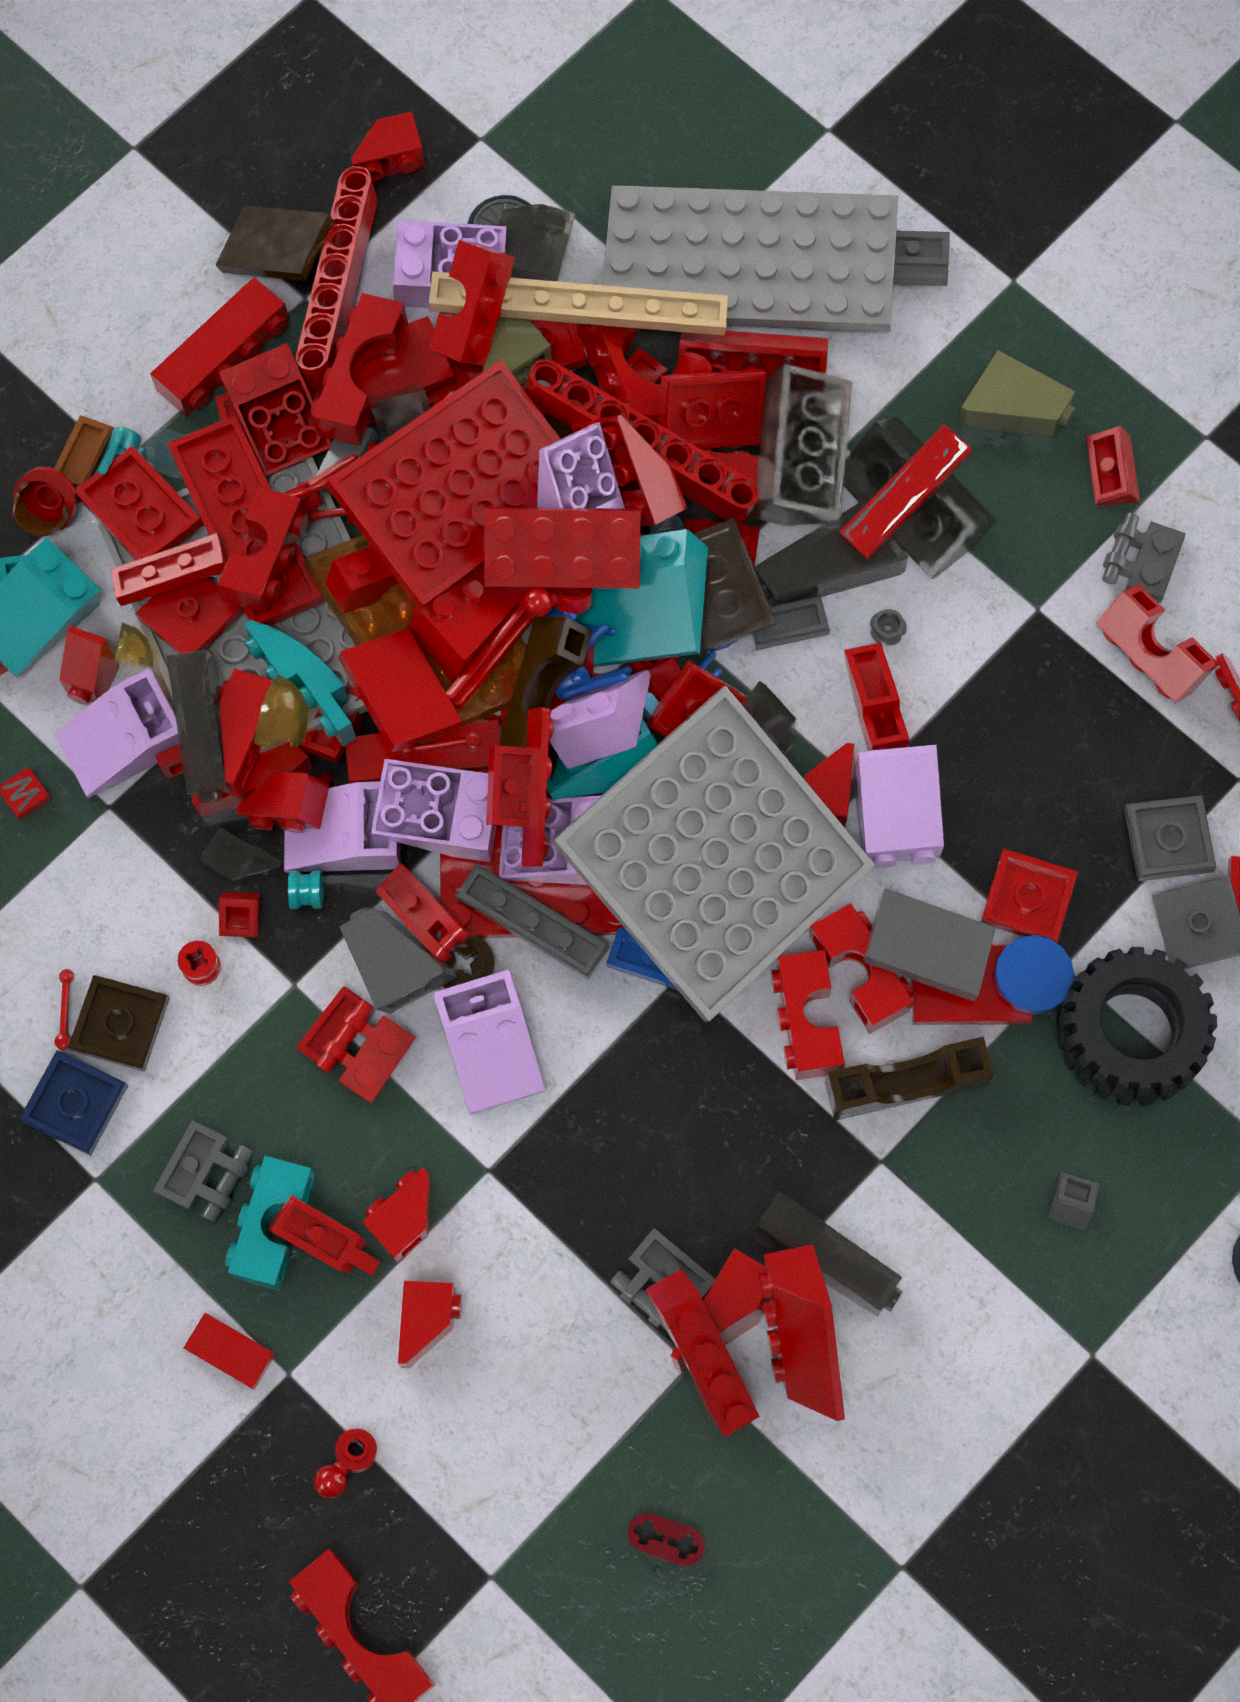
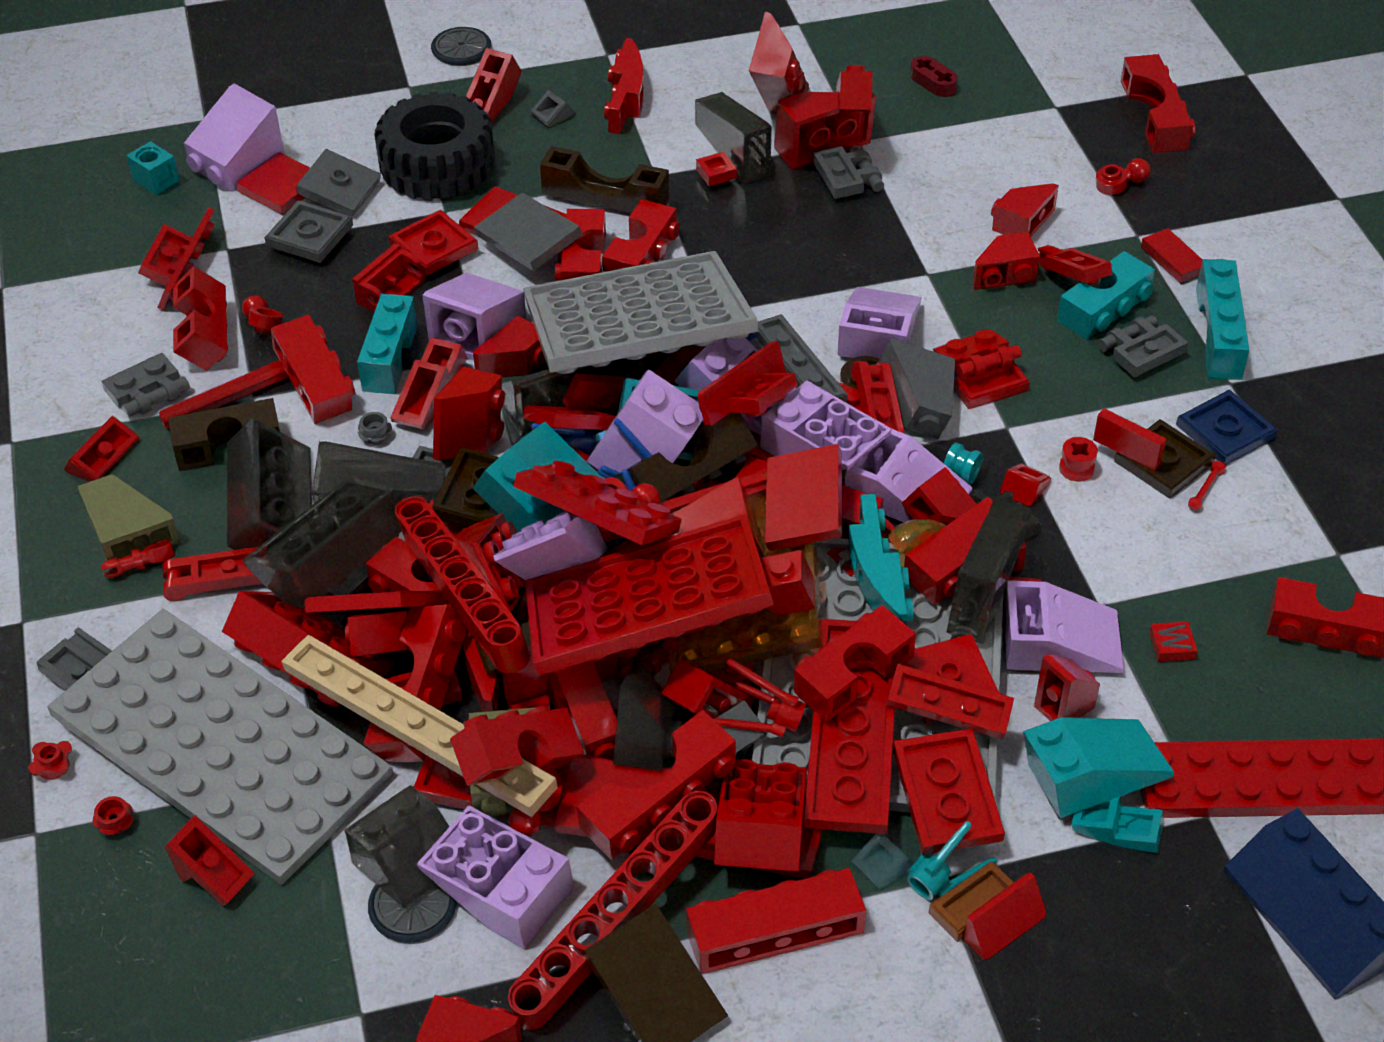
camera: 150 degrees left, 25 degrees down
(43, 501) = (1041, 851): red piece -> none
(54, 440) = (1005, 917): none -> red slope
(130, 1251) = (1226, 328): none -> teal arch
(134, 648) = (1018, 674): clear yellow brick -> none
(152, 995) = (1129, 439): none -> red tile
(666, 156) = (208, 860): none -> red slope
(777, 155) = (108, 809): none -> red plate
(795, 658) = (468, 413): none -> red slope
(813, 1192) = (716, 168): none -> red plate
(867, 186) = (50, 759): none -> red plate
(893, 396) = (207, 573): none -> red plate
(905, 492) = (281, 461): red tile -> none
(963, 735) = (389, 332): none -> teal arch
(969, 377) = (156, 552): none -> red piece
(993, 560) = (200, 433): none -> dark brown arch
(993, 642) = (313, 368): none -> red brick
(1022, 1299) = (627, 87): none -> red slope
(1027, 812) = (387, 275): none -> red hinge
(1033, 974) = (472, 198): blue tile -> none
(1054, 605) = (227, 392): none -> red axle
(1130, 709) = (260, 315): none -> red plate
(1159, 1169) = (494, 81): none -> red slope

